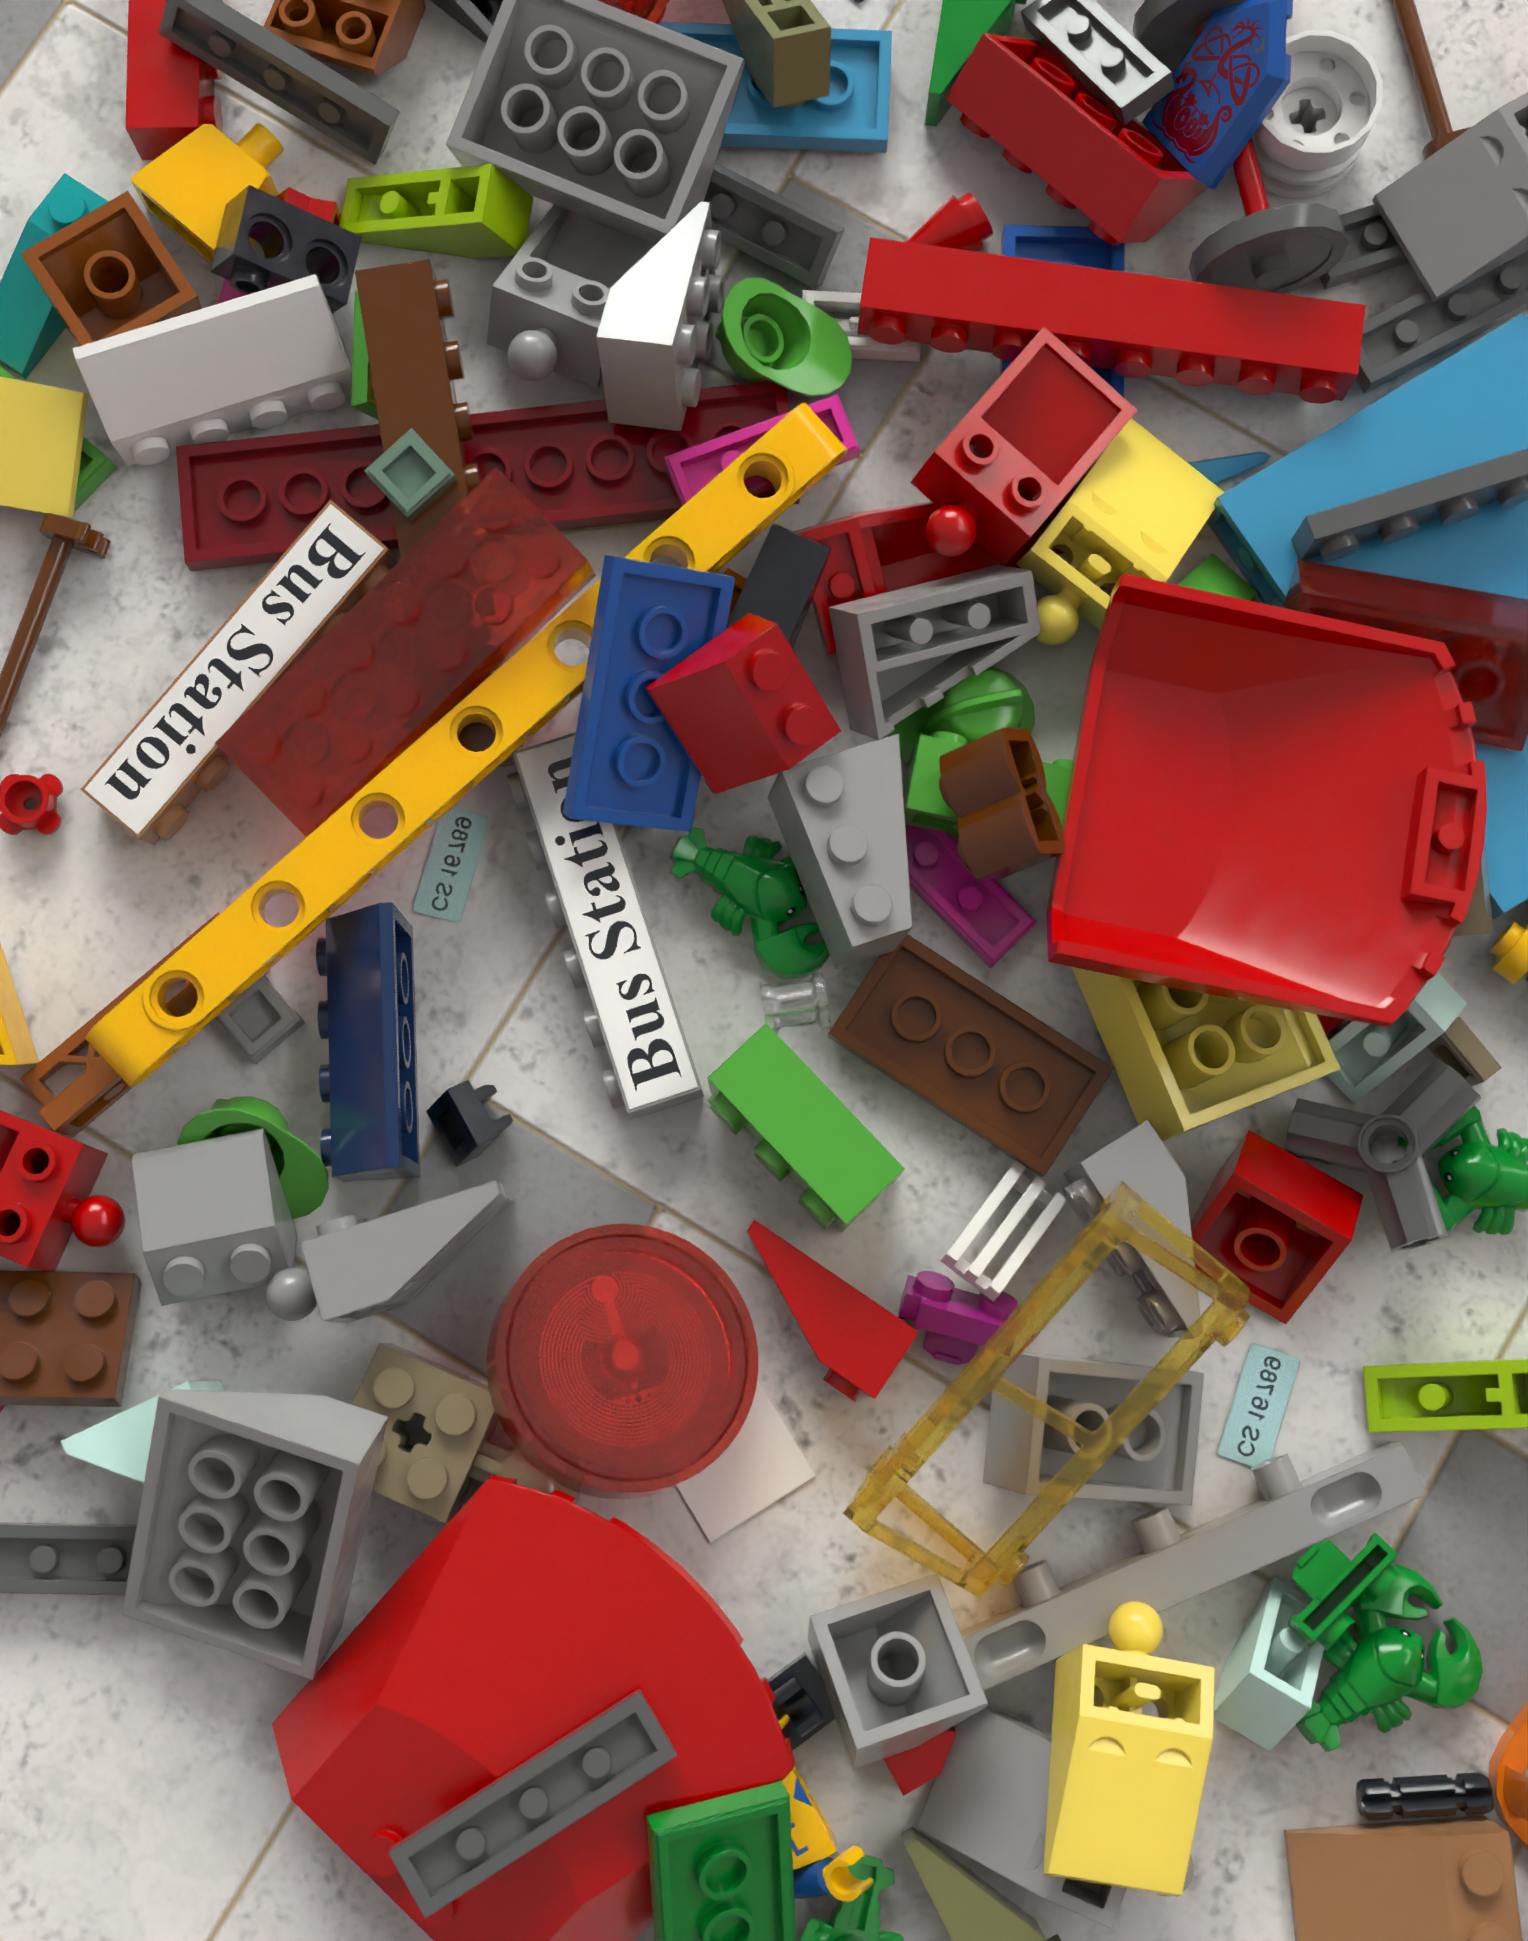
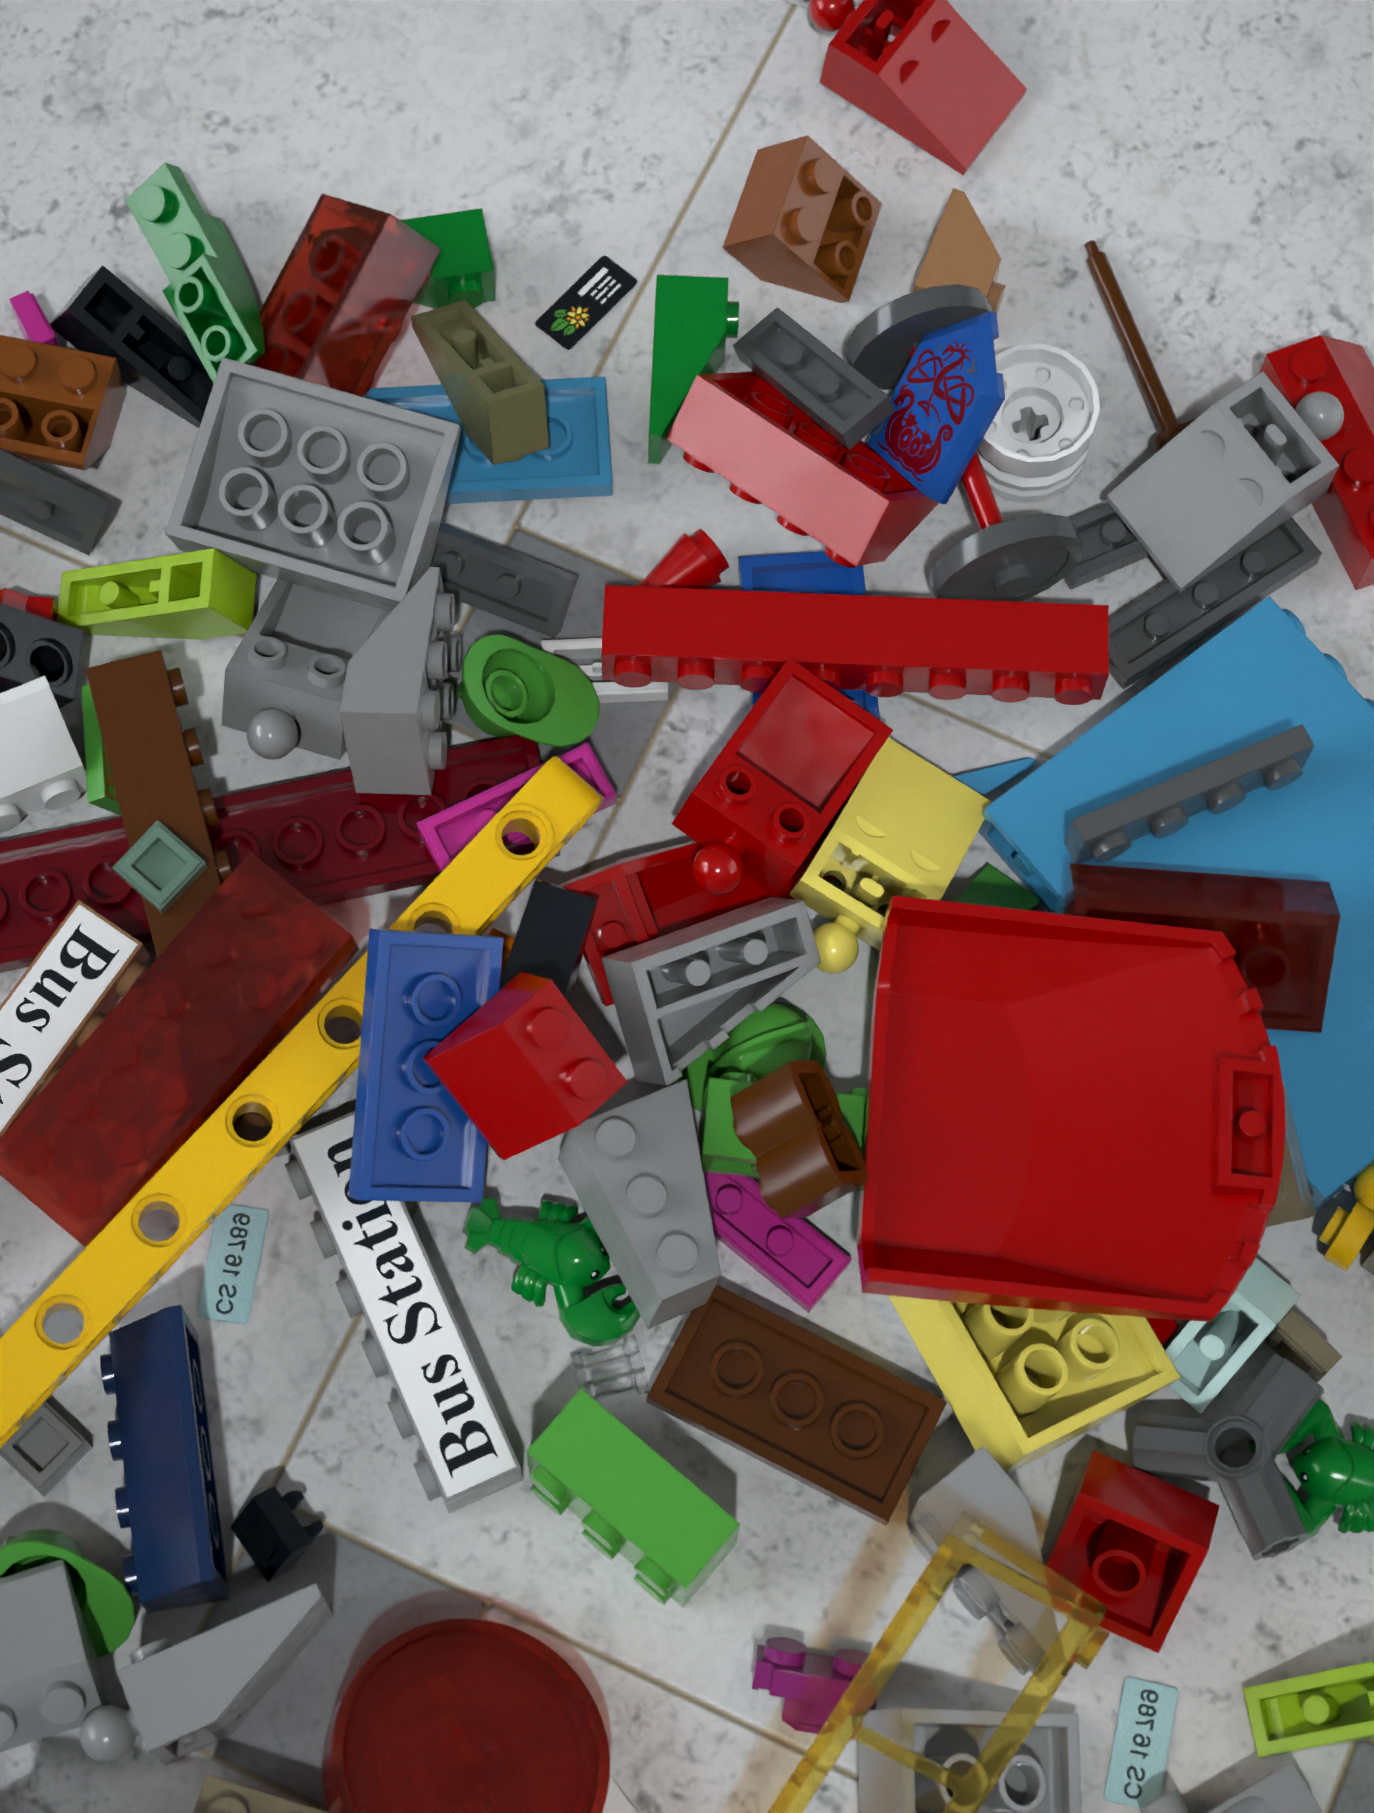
camera: 10 degrees left, 10 degrees down
(840, 1323) = (690, 1701): red slope -> none
(1032, 1192) = (877, 1543): white tile -> none

